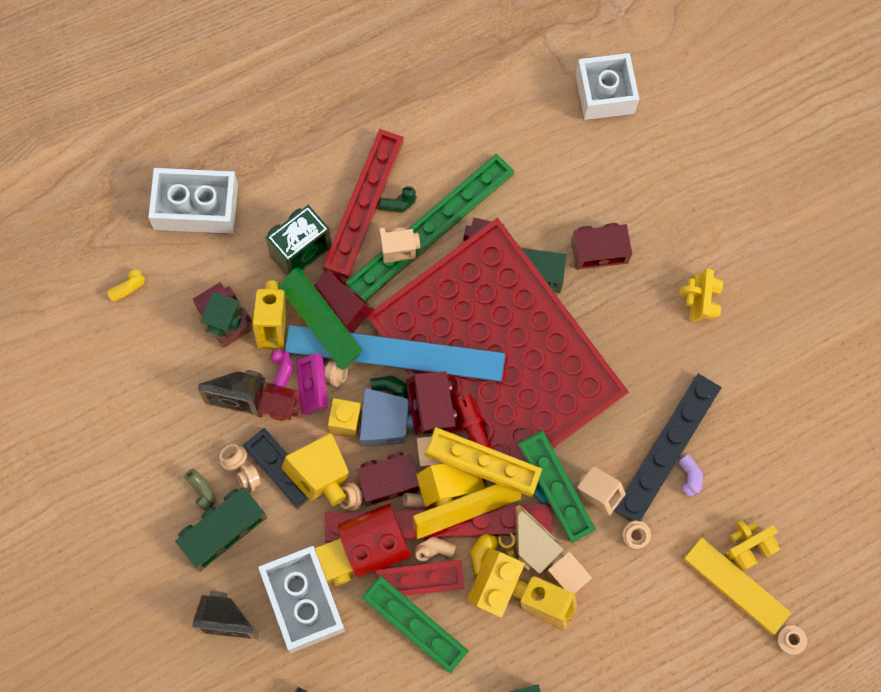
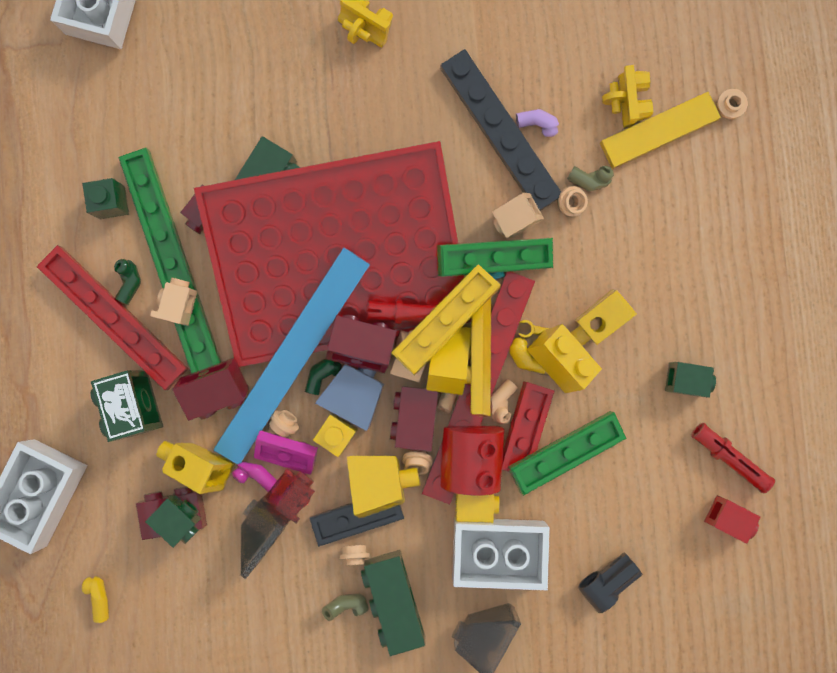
camera: 60 degrees left, 15 degrees up
(232, 457) = (326, 561): light nougat plate -> none
(320, 318) = (221, 417): green tile -> none
(458, 157) = (105, 198): none -> dark green brick
(534, 542) = (541, 303): tan slope -> none
(568, 573) = (583, 285): light nougat brick -> none
(601, 246) = (267, 96): dark red brick -> none
(662, 545) = (593, 180): none -> olive arm

